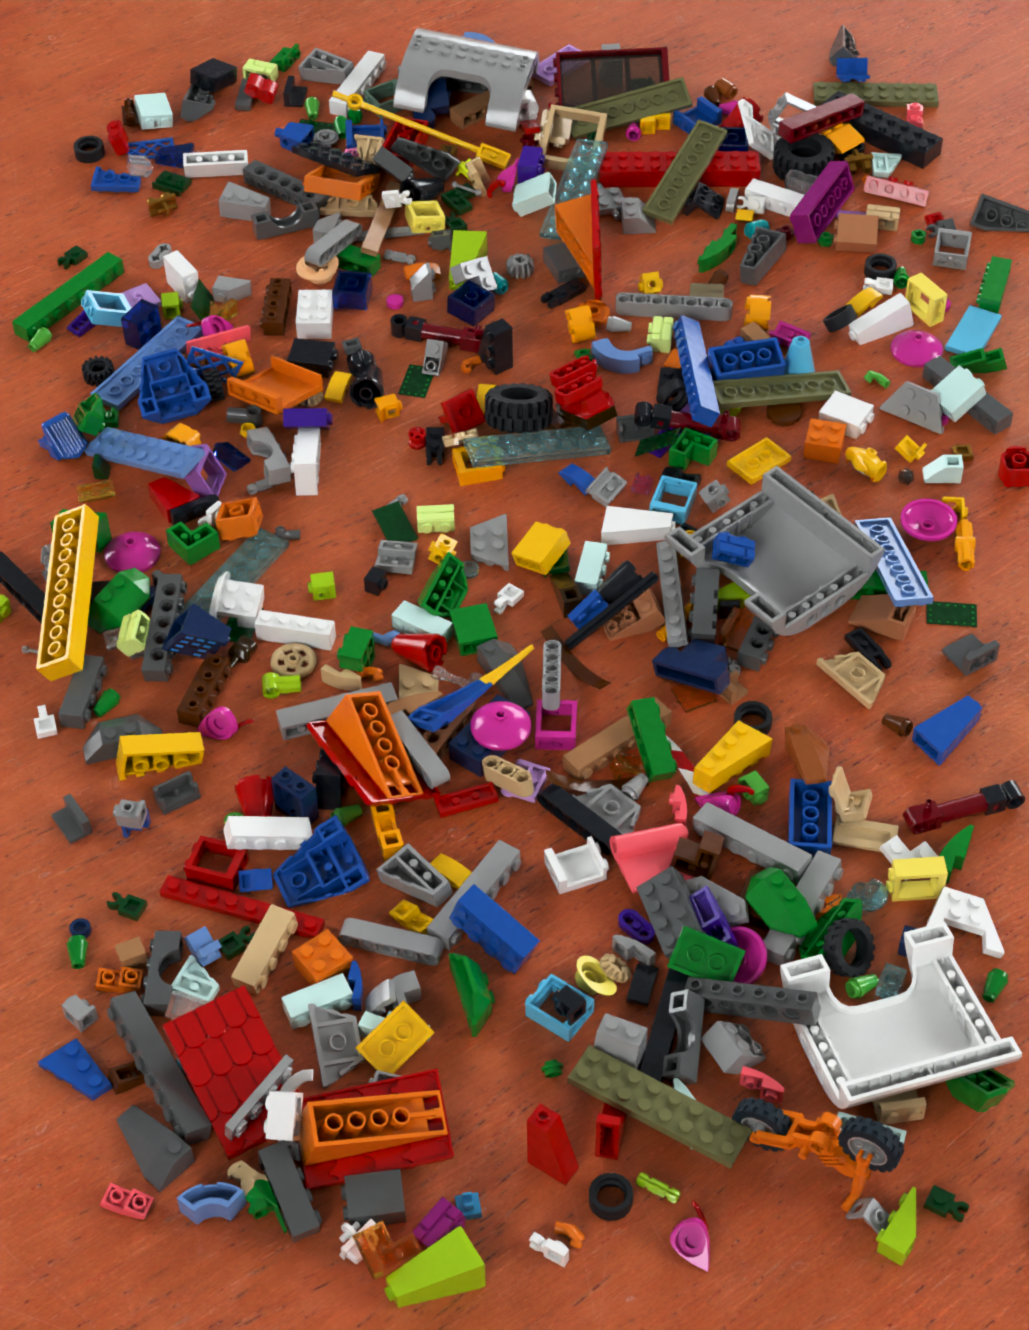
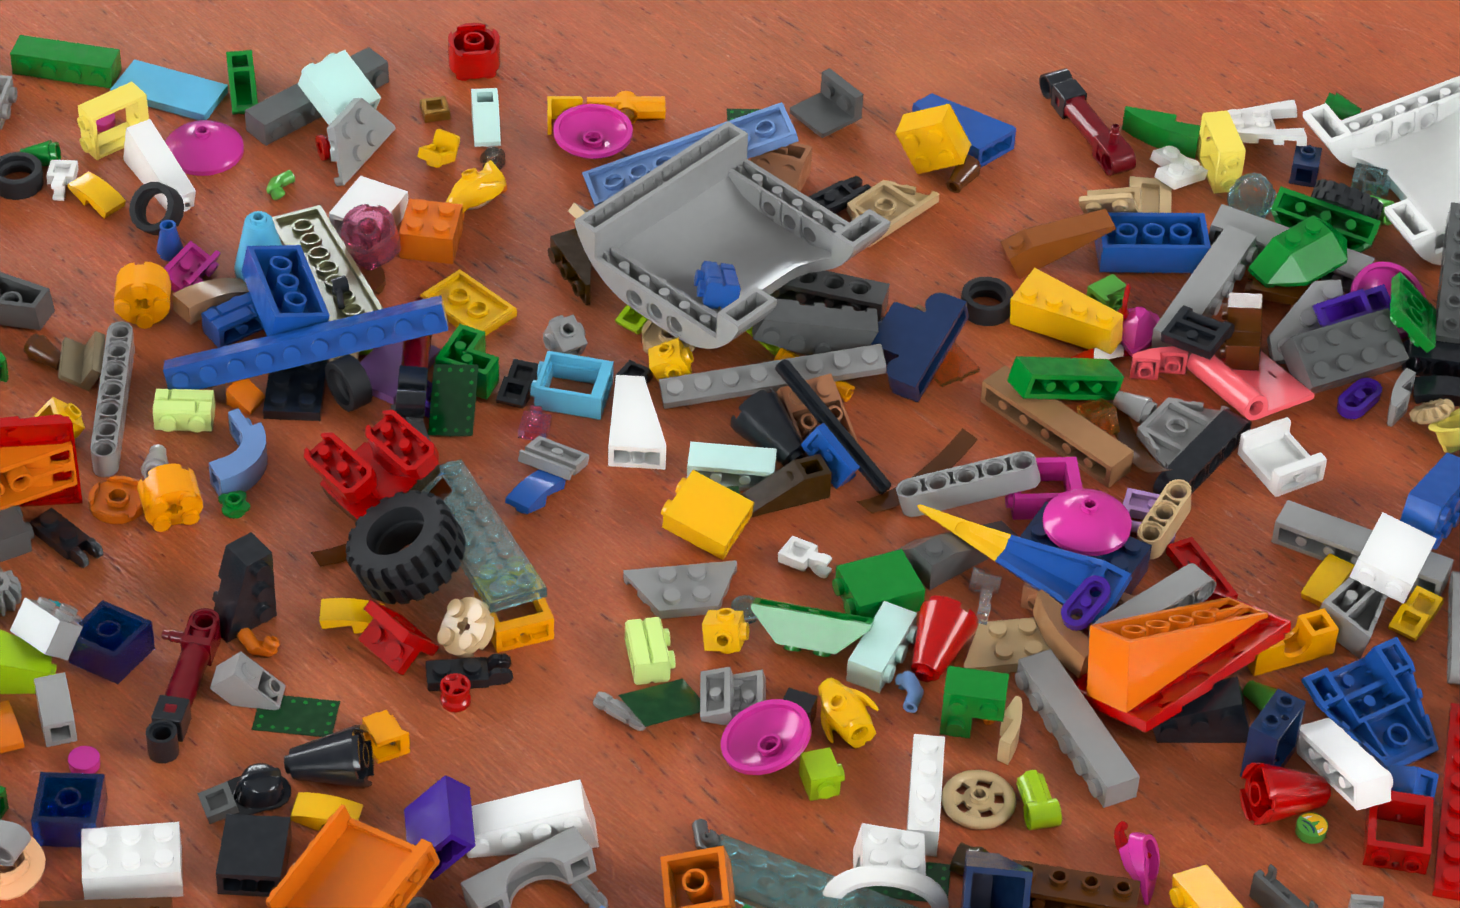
camera: 100 degrees left, 5 degrees down
(349, 559) = (766, 737): none -> dark pink dish
(368, 599) = (846, 713): none -> yellow animal
(415, 704) = (1084, 603): none -> dark purple plate
(435, 884) = (1392, 557): none -> white brick
(687, 814) = (1196, 332): none -> black plate
(749, 383) = (340, 285): none -> black hand
(803, 402) = (370, 235): none -> clear pink brick
(814, 327) = (169, 241): none -> blue cone
(917, 695) = (933, 138): none -> yellow brick

